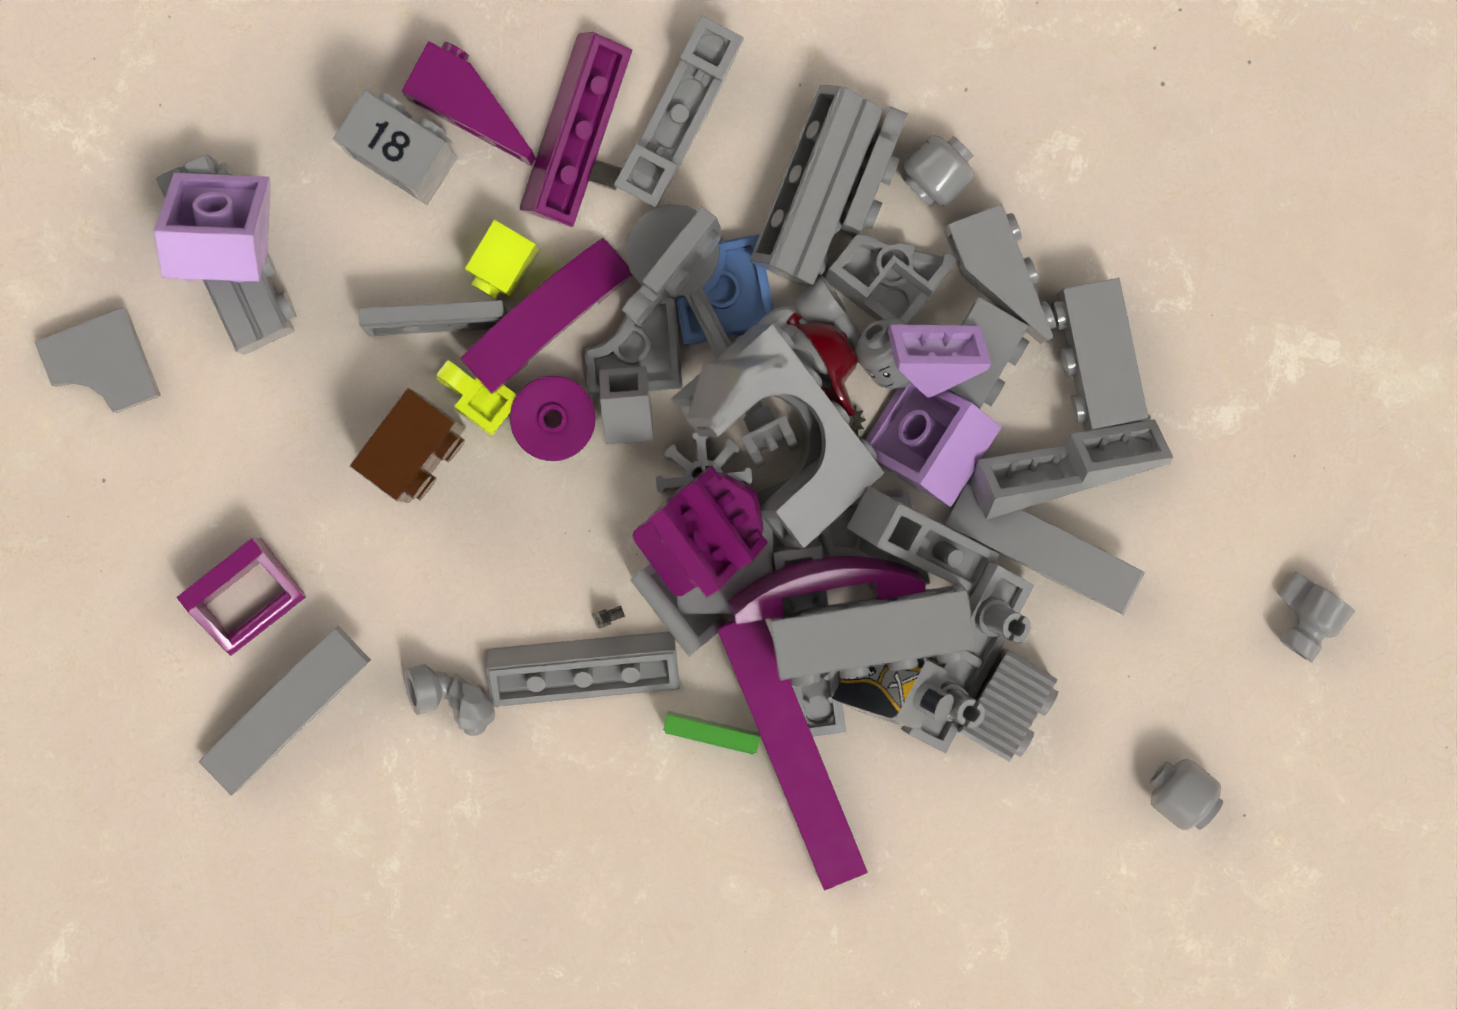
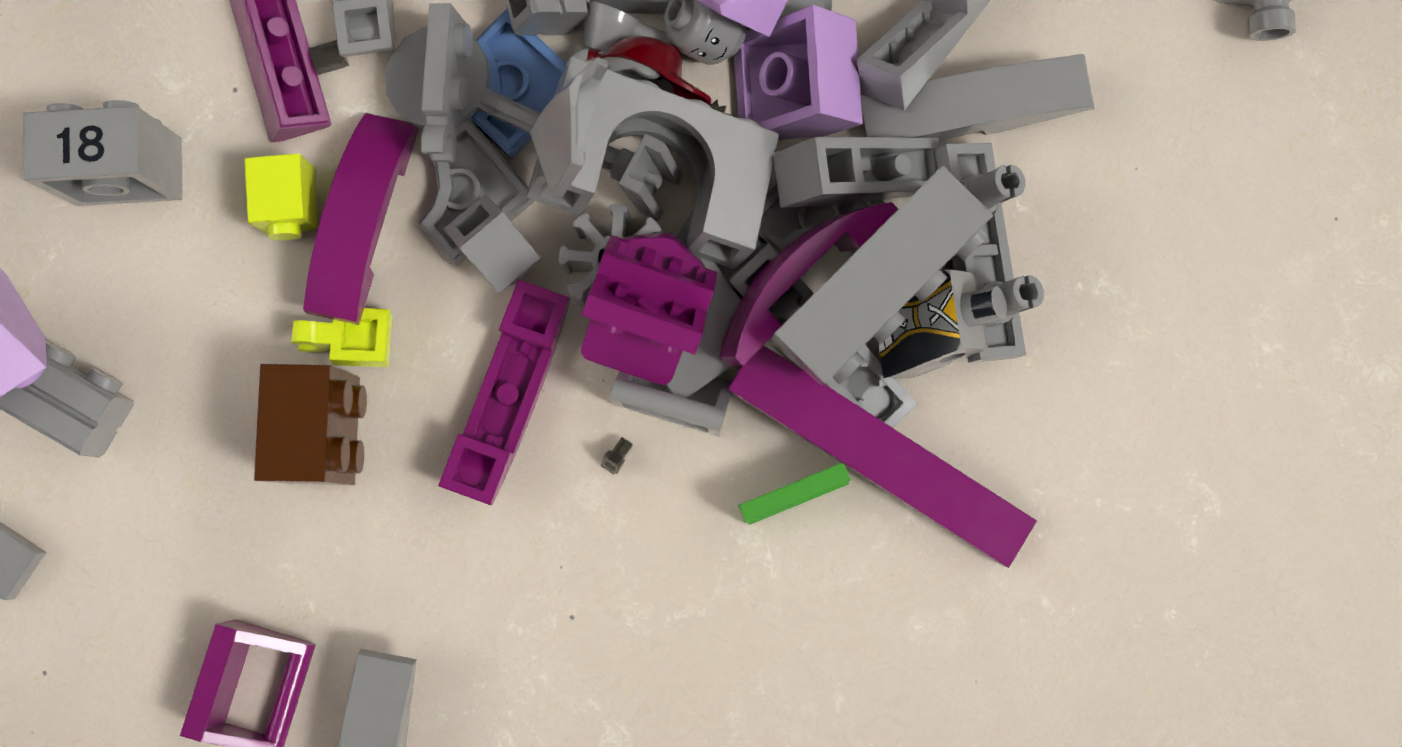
camera: 30 degrees left, 5 degrees down
(431, 318) = (248, 296): light grey tile -> none
(455, 92) = (151, 75): magenta slope -> none
(469, 703) = (543, 633): light grey arm -> none
(529, 415) = (412, 292): magenta piece -> none
(561, 517) = (507, 393): none -> magenta slope
(582, 669) = (628, 524): light grey slope -> none
(1011, 699) = (1054, 251): light grey brick -> none
(1186, 794) = (1275, 233): light grey head -> none

